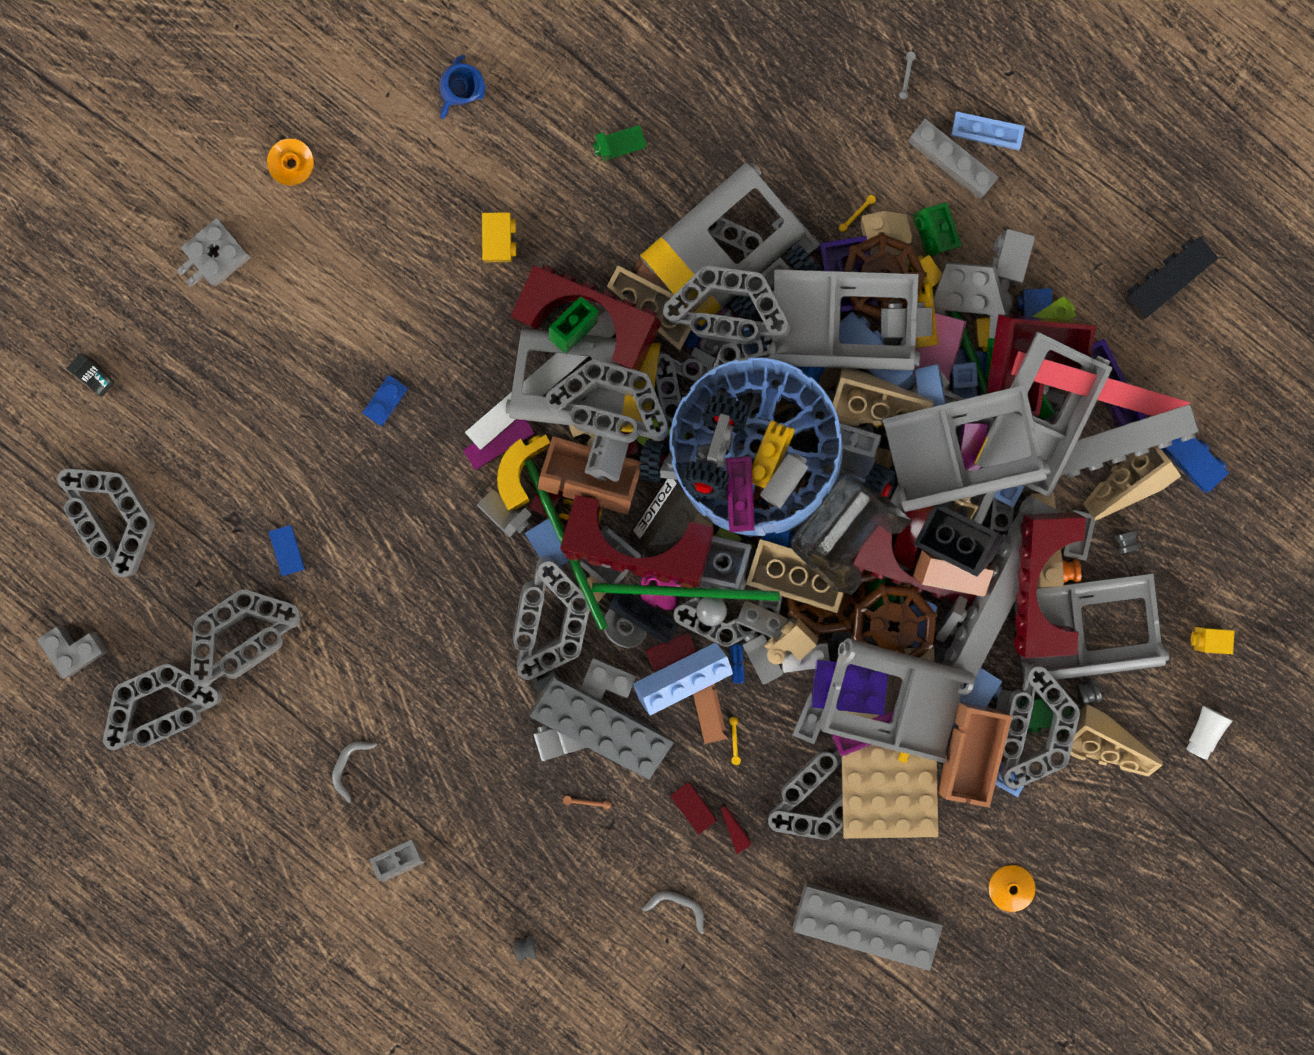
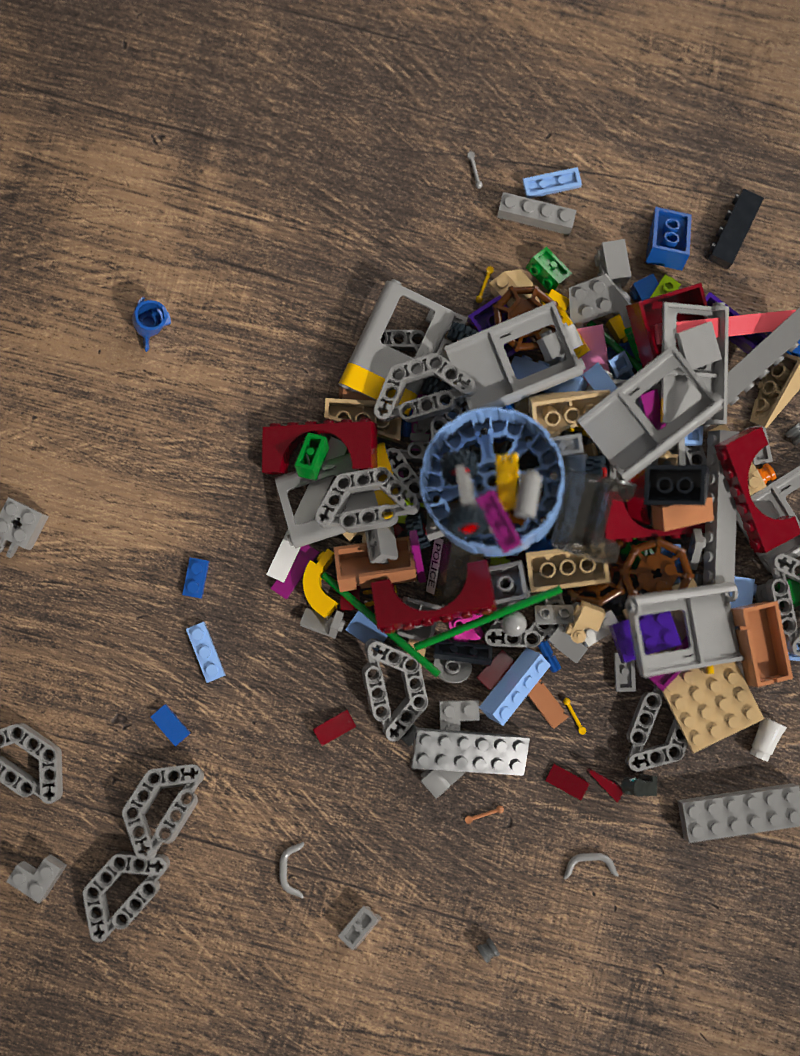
camera: 25 degrees left, 5 degrees down
(289, 150) = (39, 427): light orange dish -> none
(360, 487) = (205, 652): none -> light blue plate
(465, 634) = (334, 727): none -> dark red slope
(497, 237) = (226, 419): yellow brick -> none
(619, 143) = (286, 310): green bracket -> none
(640, 489) = (417, 556): none -> magenta tile
(773, 850) = (643, 786): none -> pearl dark grey leg
(933, 860) = (766, 738): none -> white plant
(1057, 397) = (699, 345): none -> light grey tile
(1090, 255) = (669, 239): none -> blue slope

